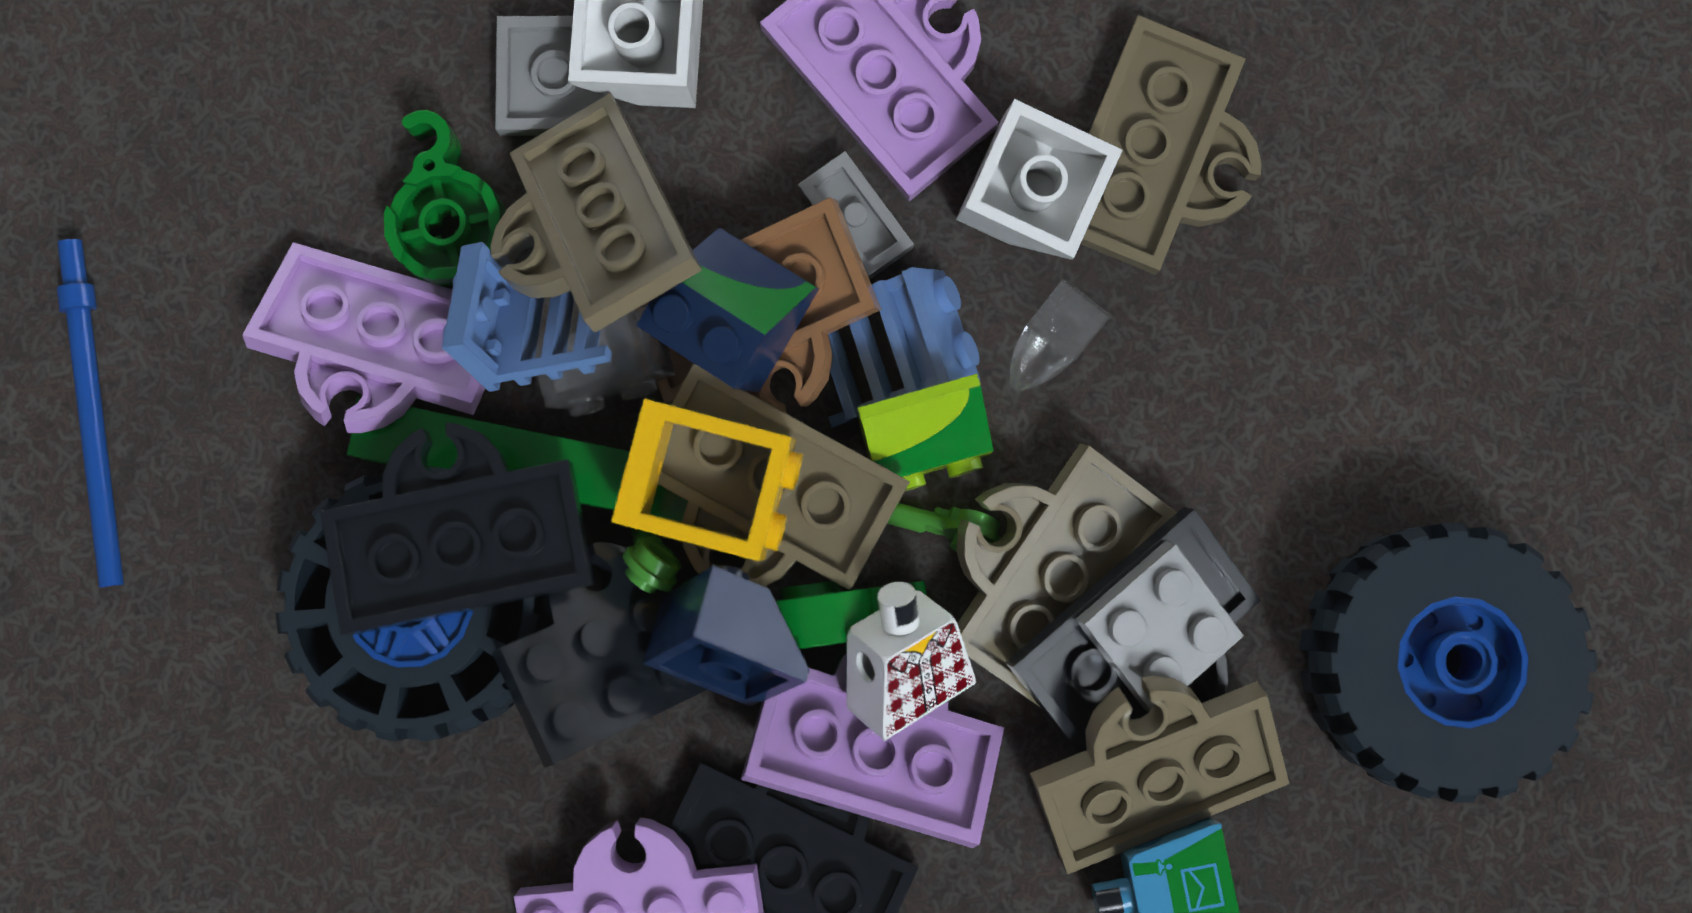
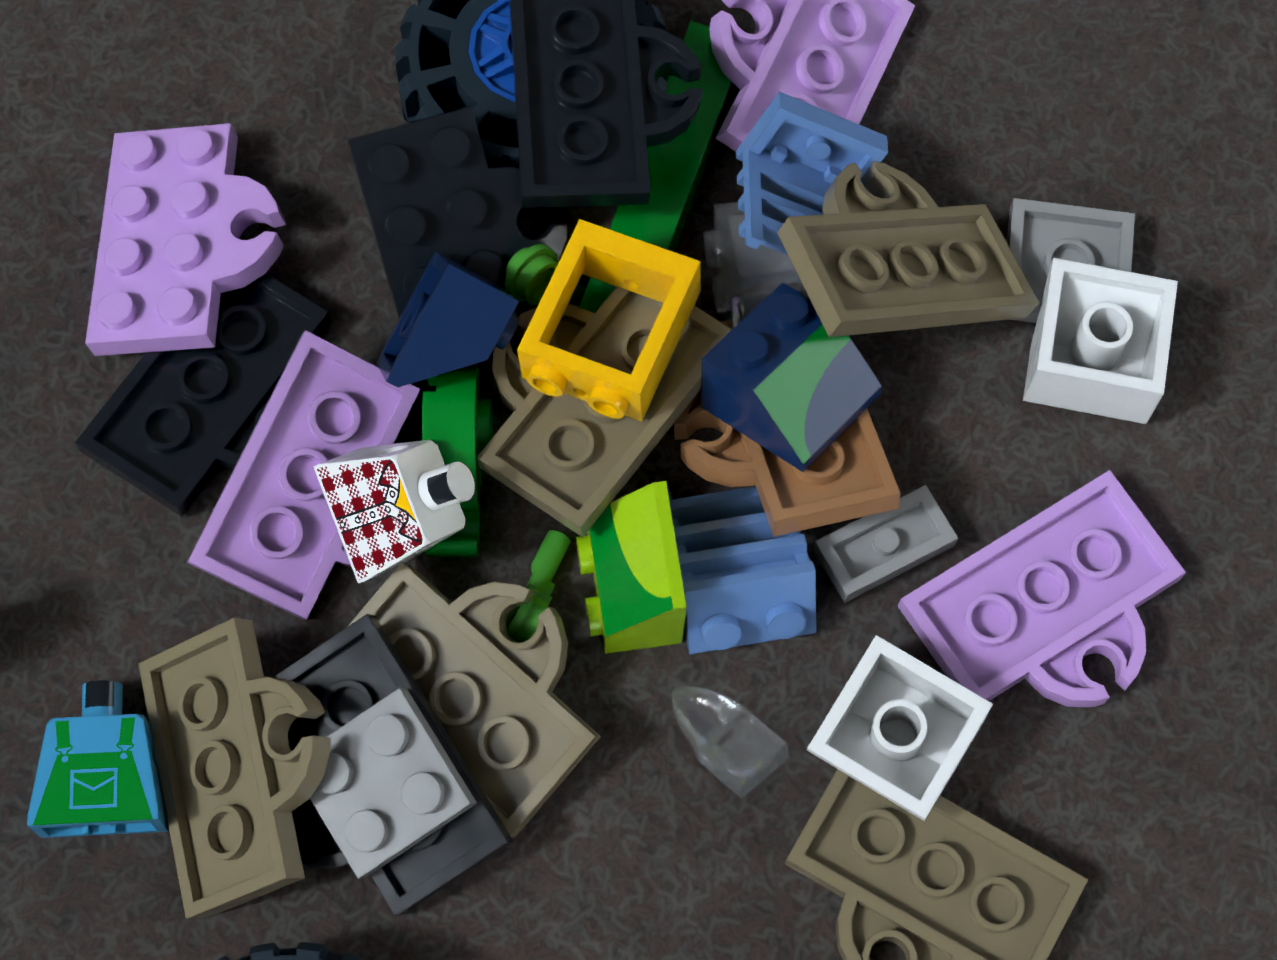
camera: 90 degrees right, 15 degrees down
(429, 195) = (946, 134): green piece -> none

